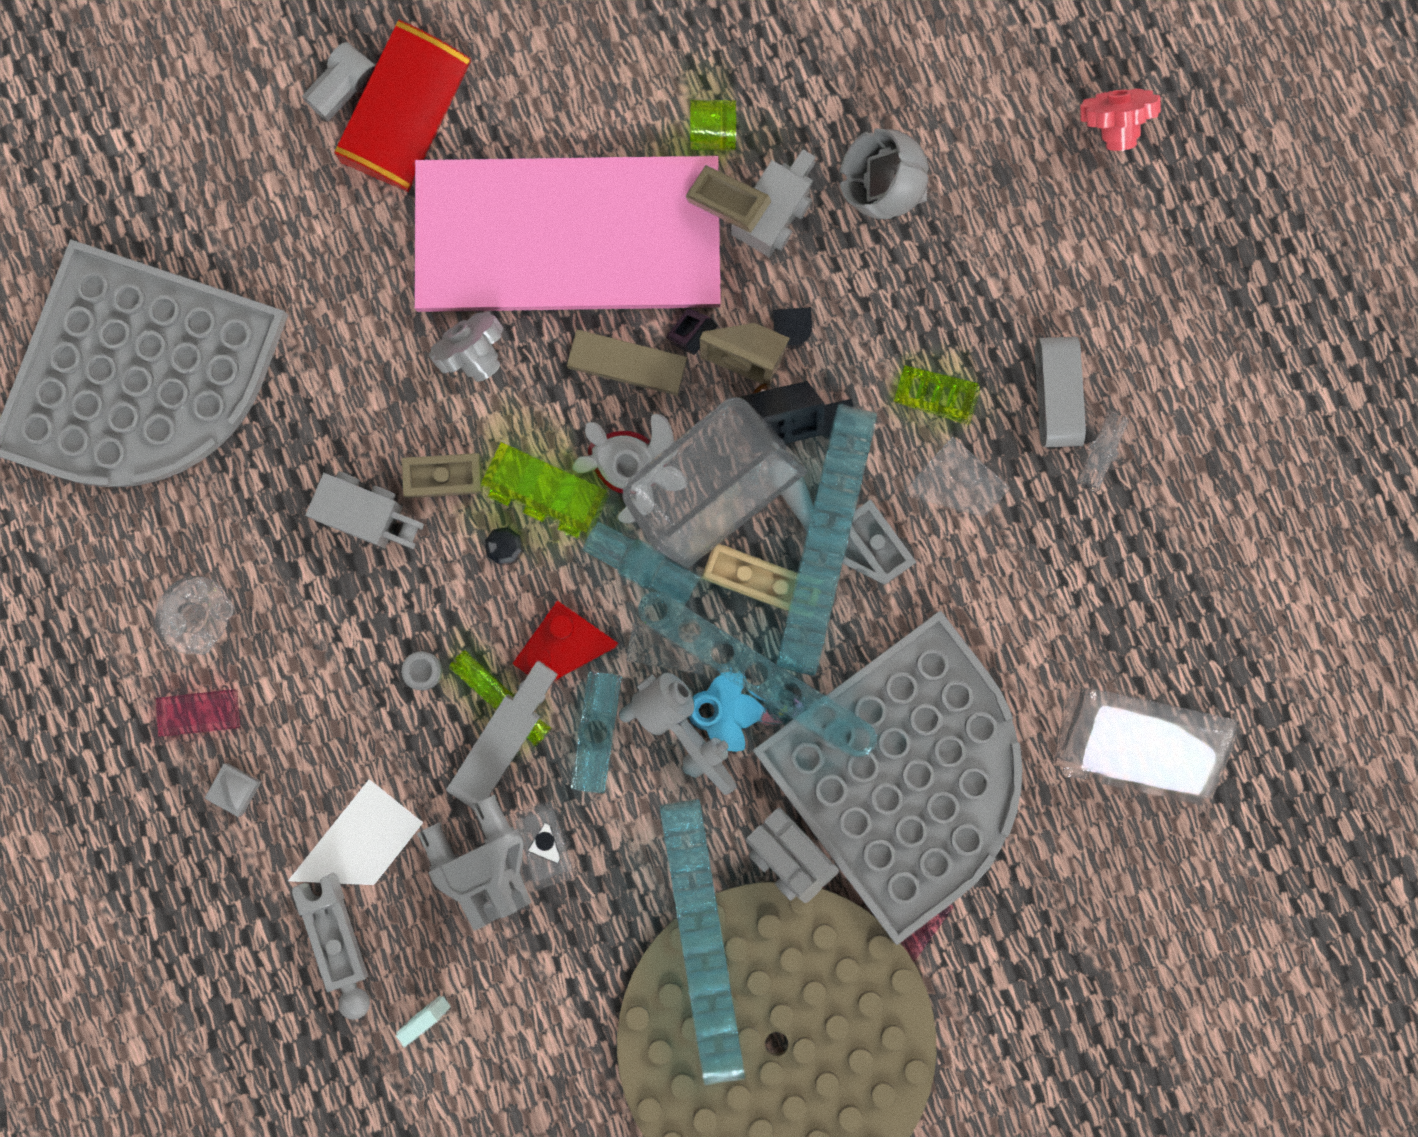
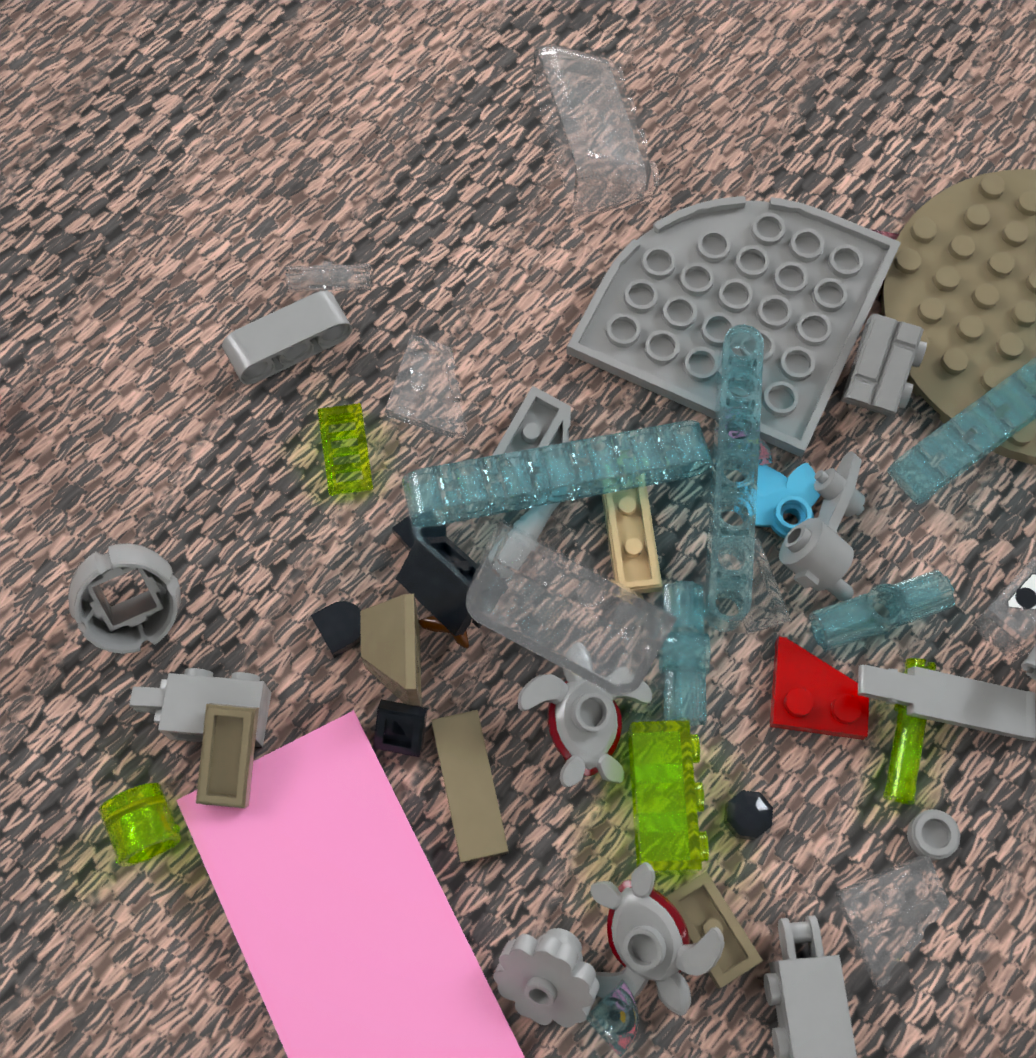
camera: 120 degrees left, 15 degrees down
(387, 606) = (891, 913): none -> clear wing
(421, 381) = (616, 1018): none -> clear light blue tile
(454, 425) = (652, 941): none -> light grey animal

